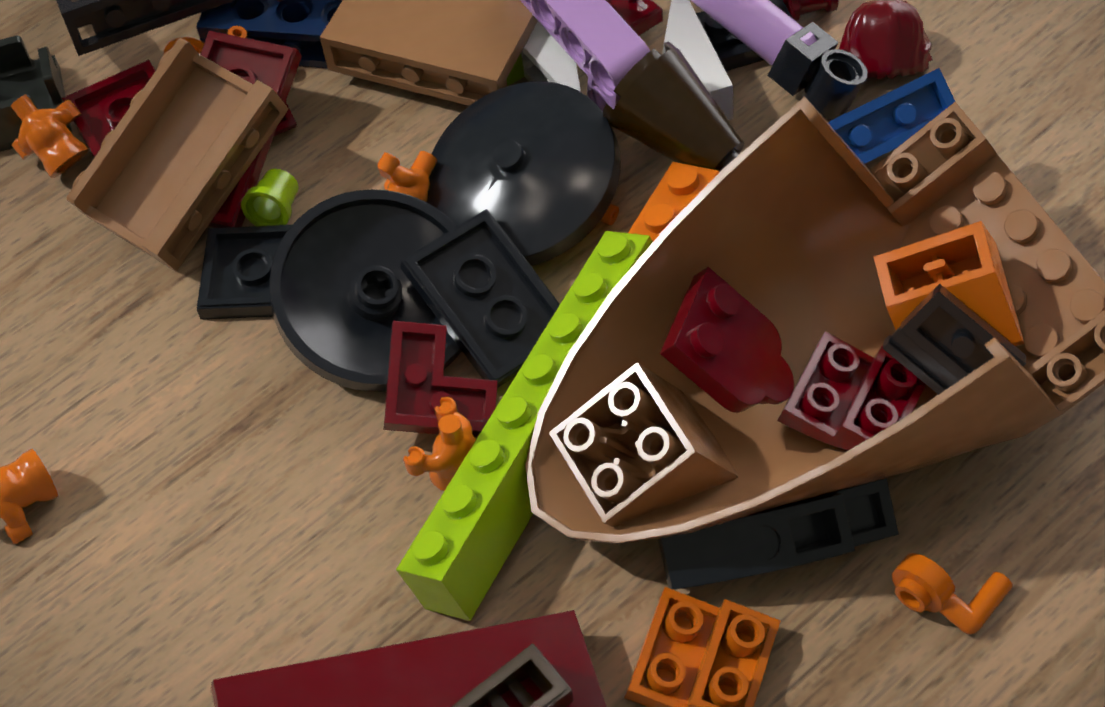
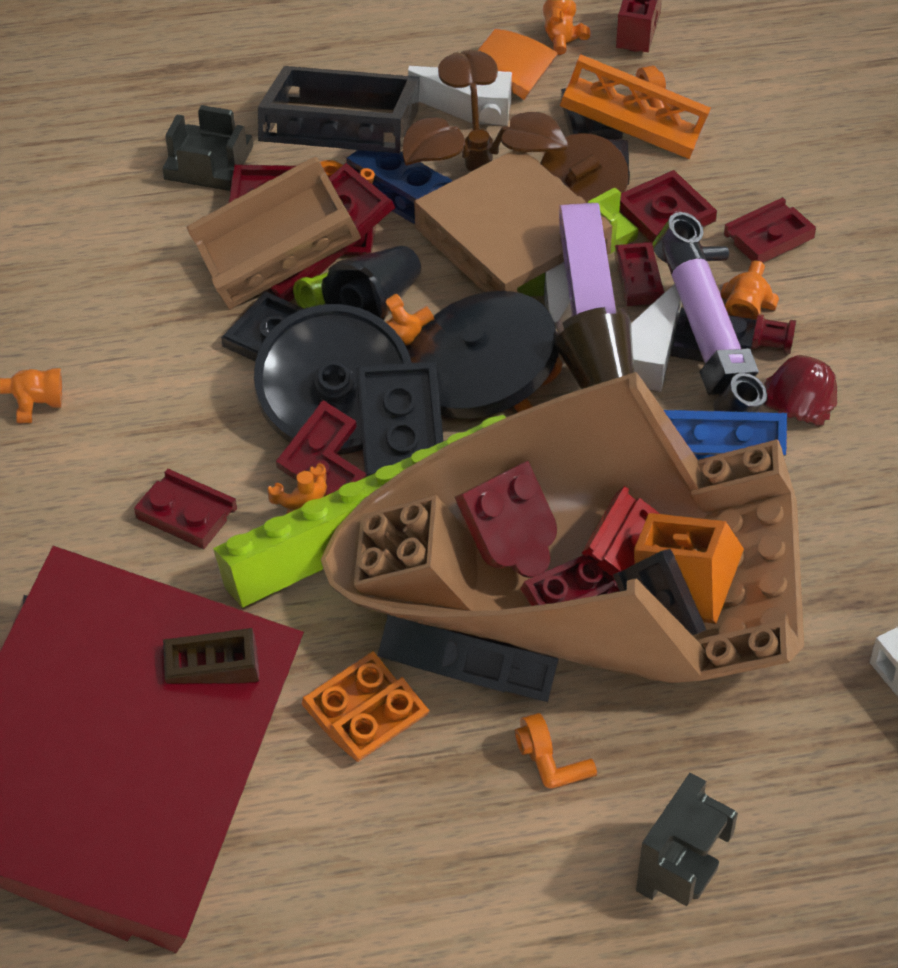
camera: 25 degrees right, 5 degrees down
(48, 136) = (206, 183): orange piece -> none
(306, 538) = (185, 508): none -> dark red plate
(332, 155) = (371, 279): none -> black cone
(849, 297) = (618, 532): none -> red plate

